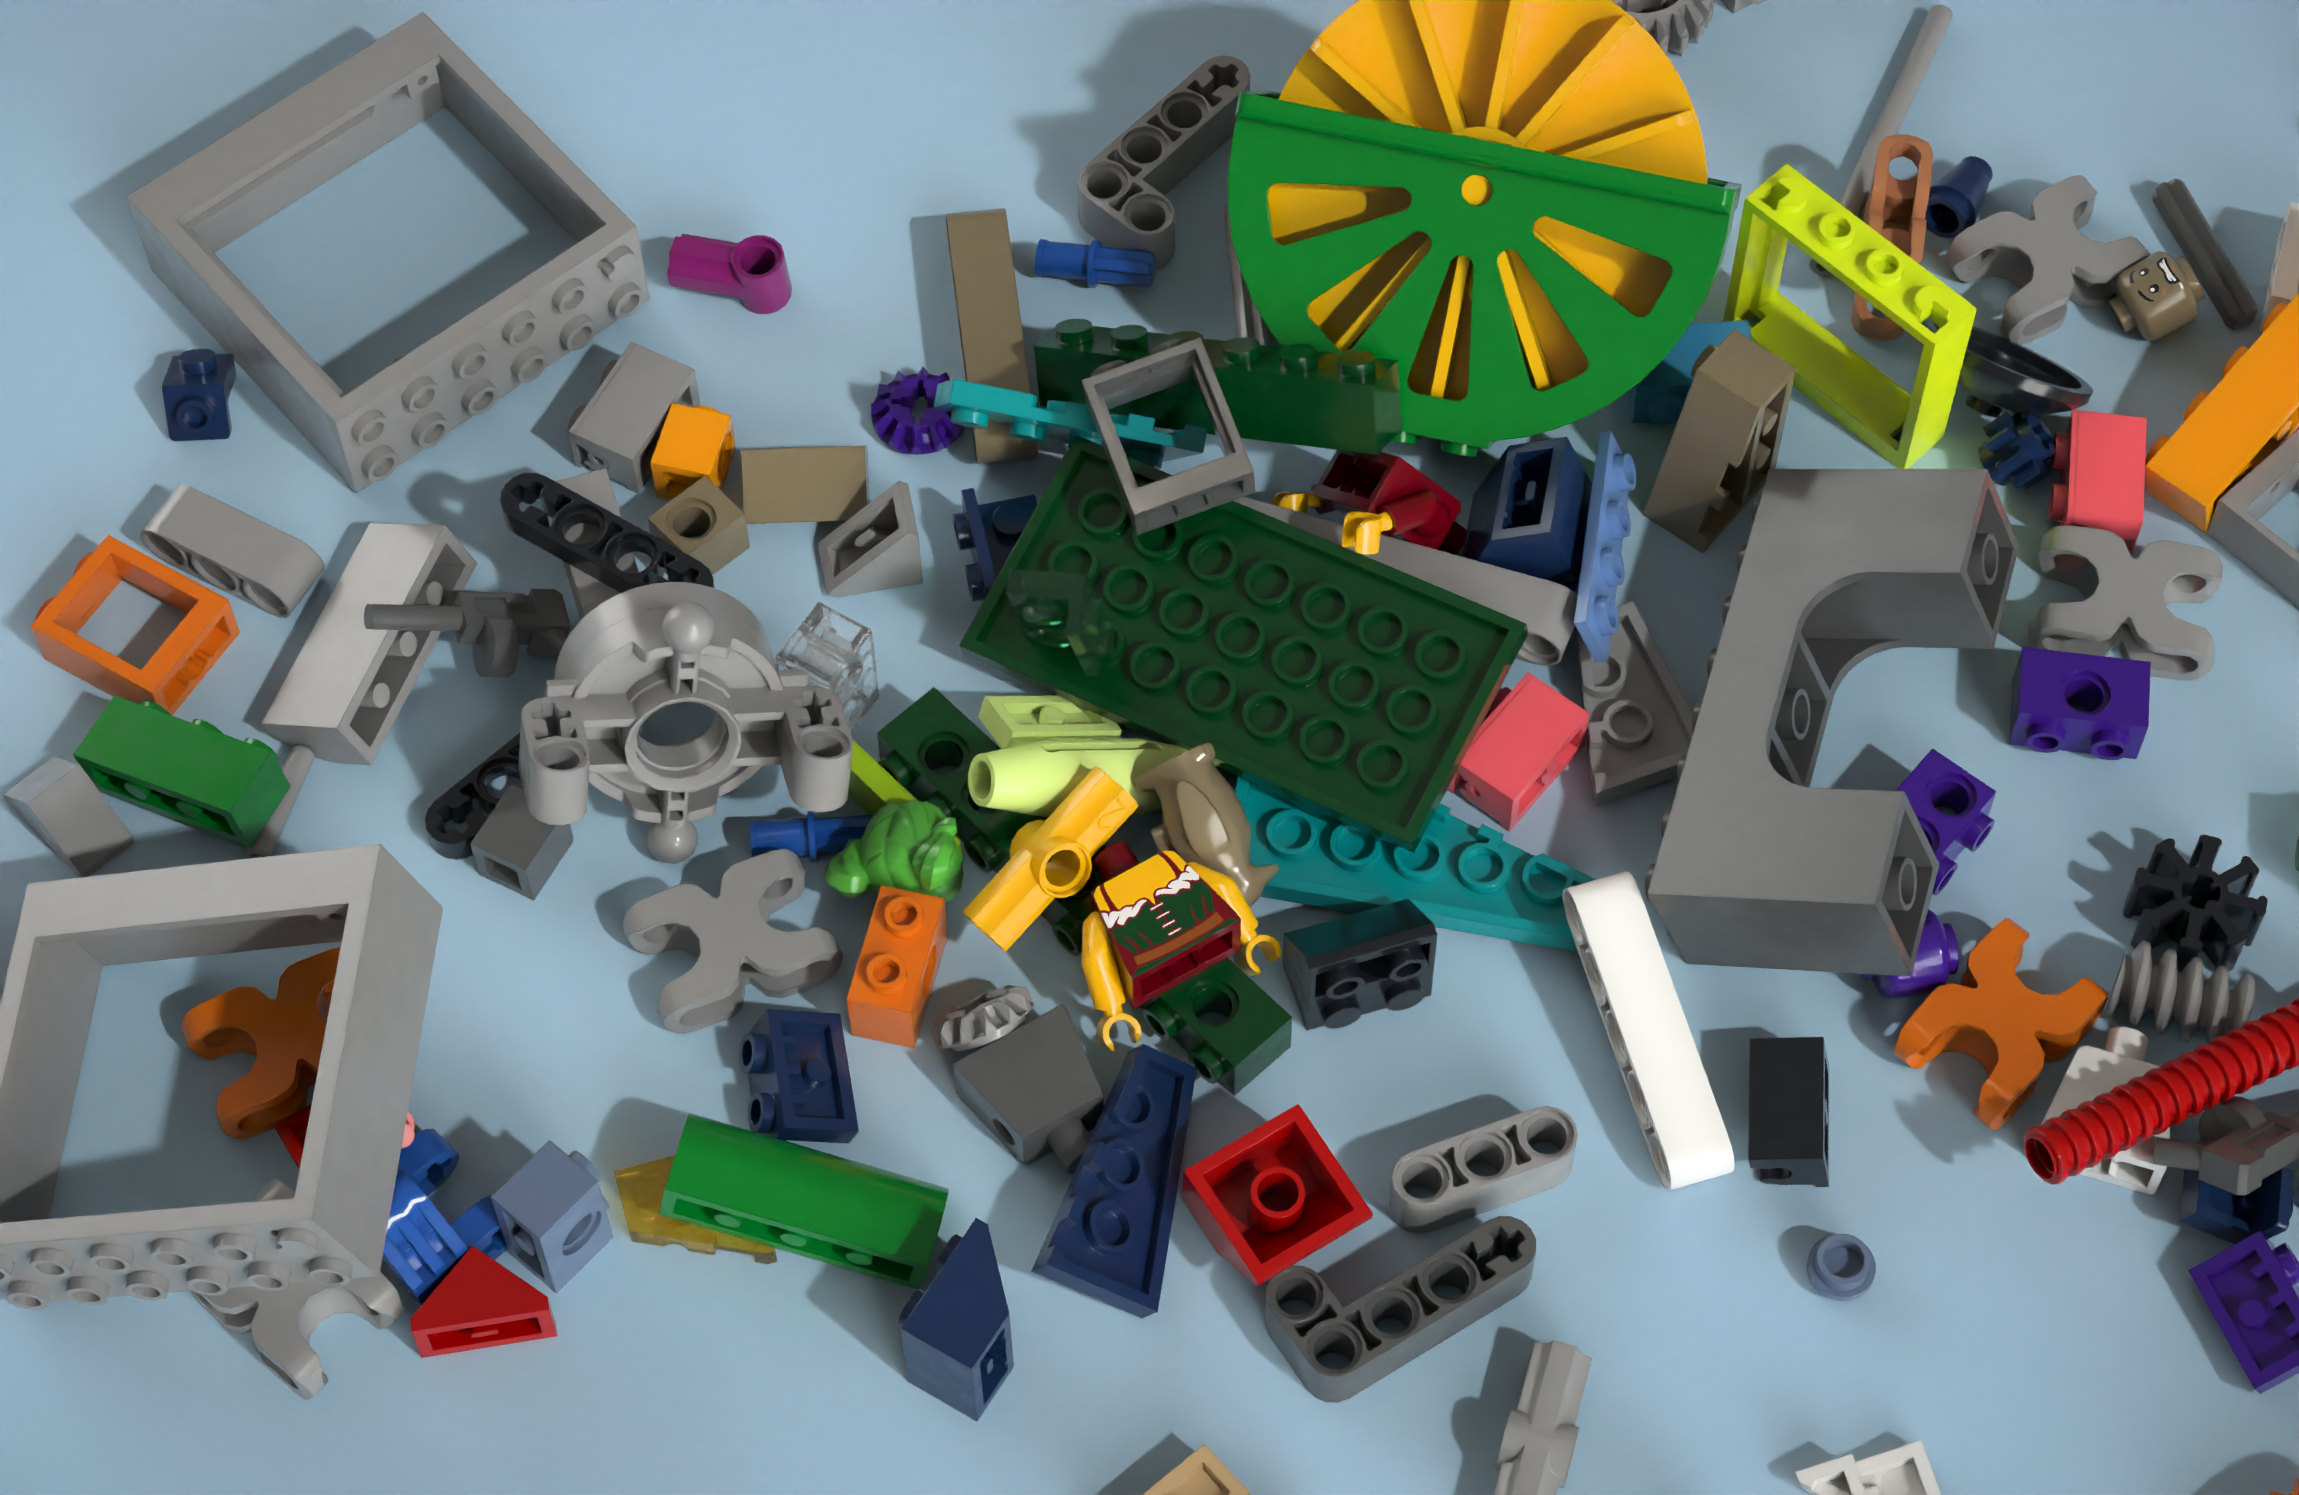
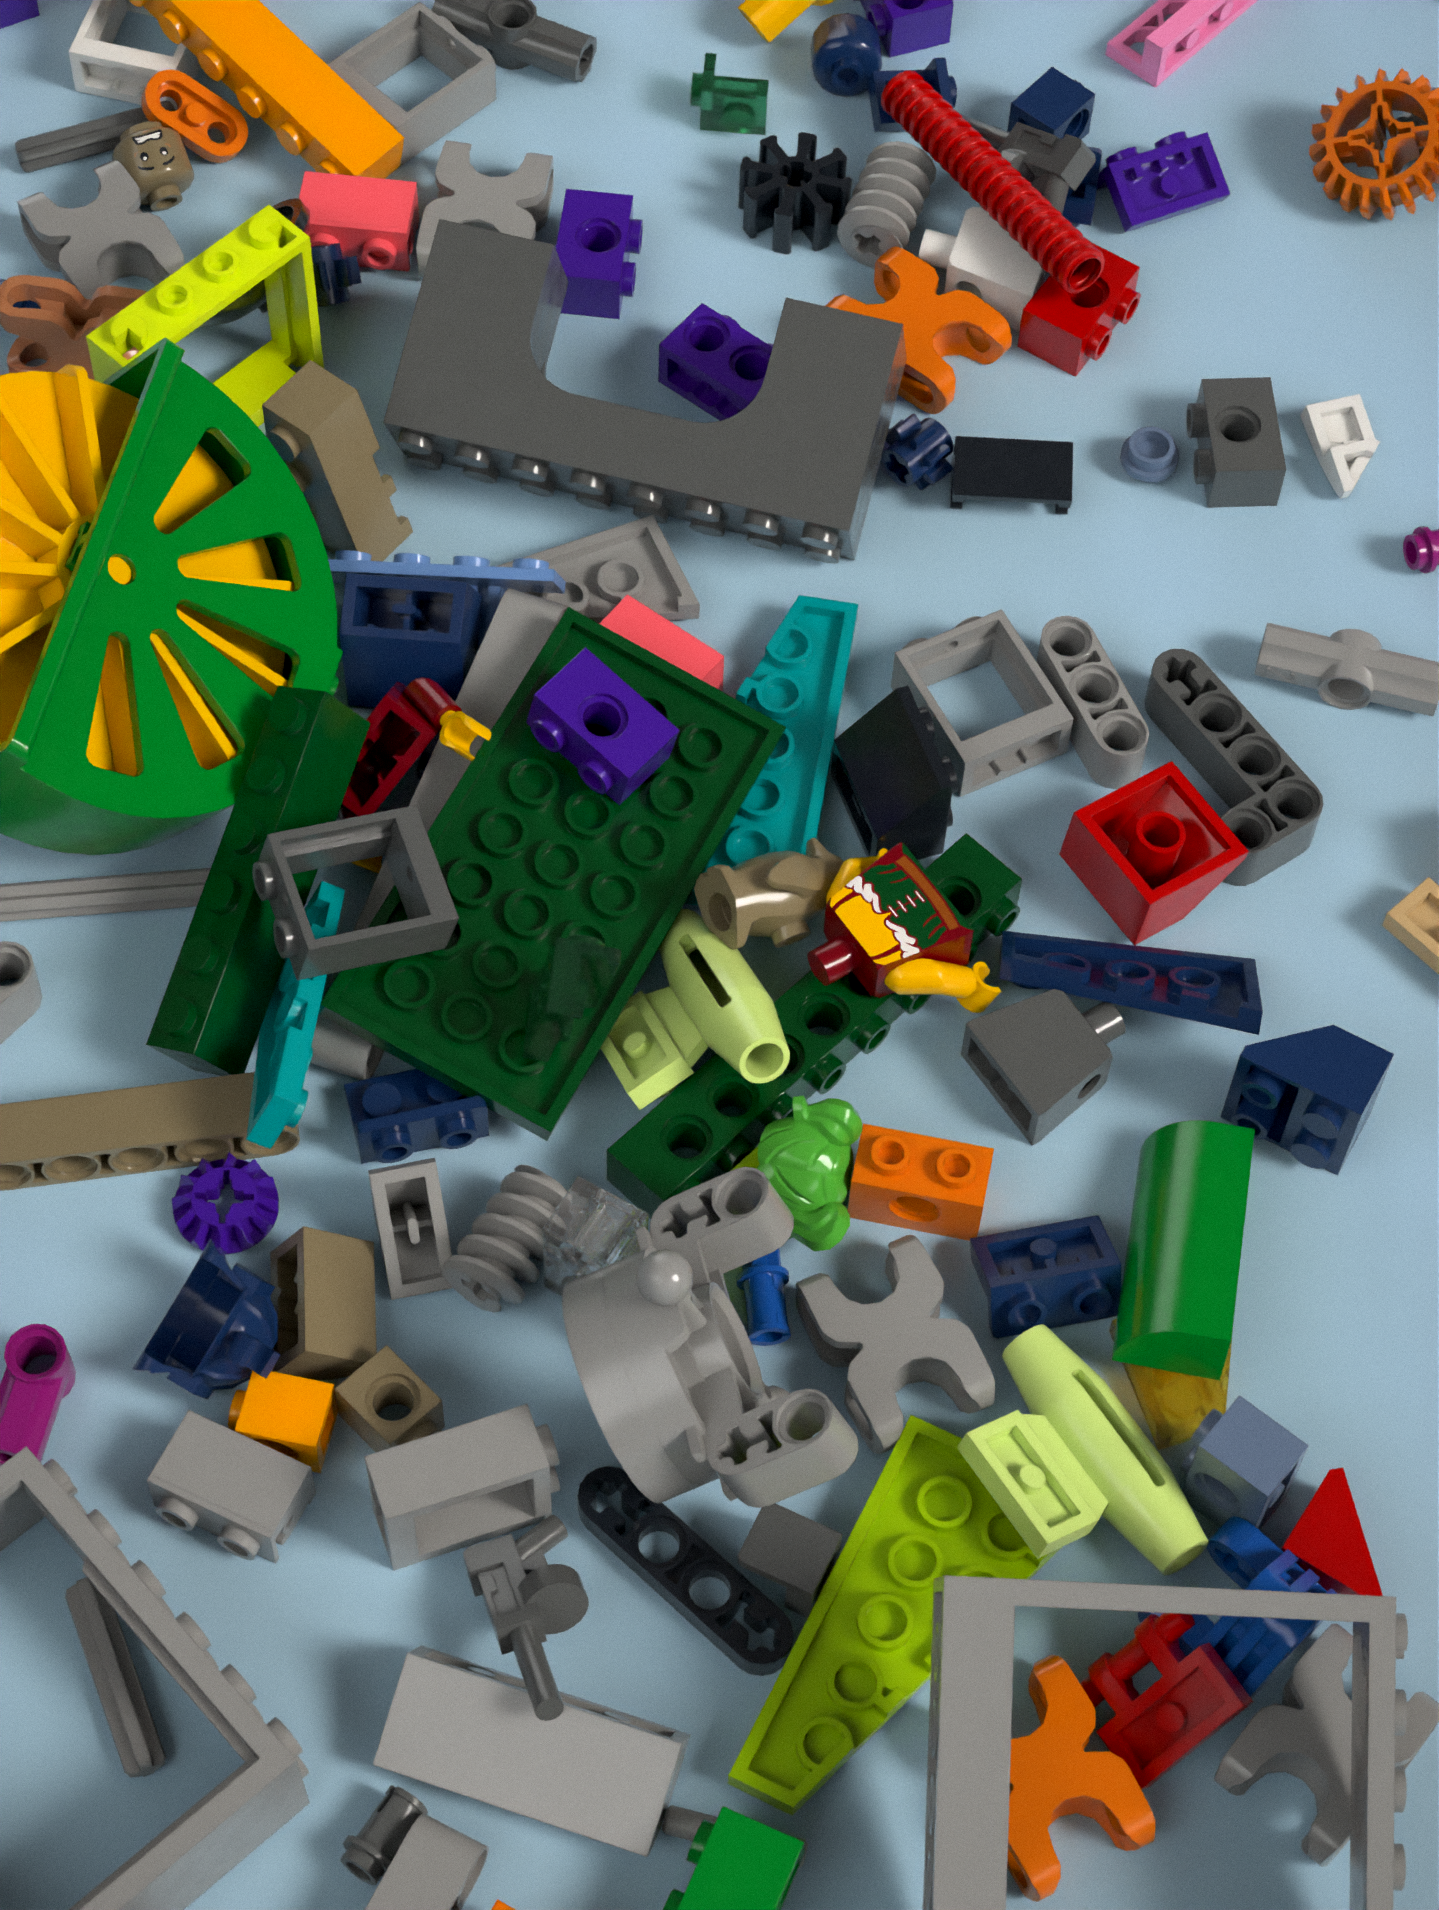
camera: 95 degrees left, 0 degrees up
(327, 542) = (382, 1835): none -> dark grey pin
(508, 959) = (873, 1620): none -> lime wing
(589, 1087) = (1078, 1461): none -> yellowish green plate
(601, 554) = (477, 1432): black beam -> none
(775, 397) = (215, 1329): none -> dark blue helmet
(895, 641) = (505, 1240): none -> light grey piece
(982, 1018) = (984, 1076): light grey gear -> none
(1028, 881) = (832, 1013): yellow piece -> none
(1095, 263) = (44, 1036): blue axle -> none
(1367, 682) = (593, 694): none -> dark purple brick
(1509, 988) = (1006, 748): none -> light grey window
(1648, 1031) = (947, 568): white beam -> none
(1815, 1008) = (917, 452): none -> dark blue gear
(1830, 1380) = (1237, 442): none -> dark grey brick
(2065, 1239) = (1076, 327): none -> red brick
(2221, 326) = (196, 114): none -> orange plate

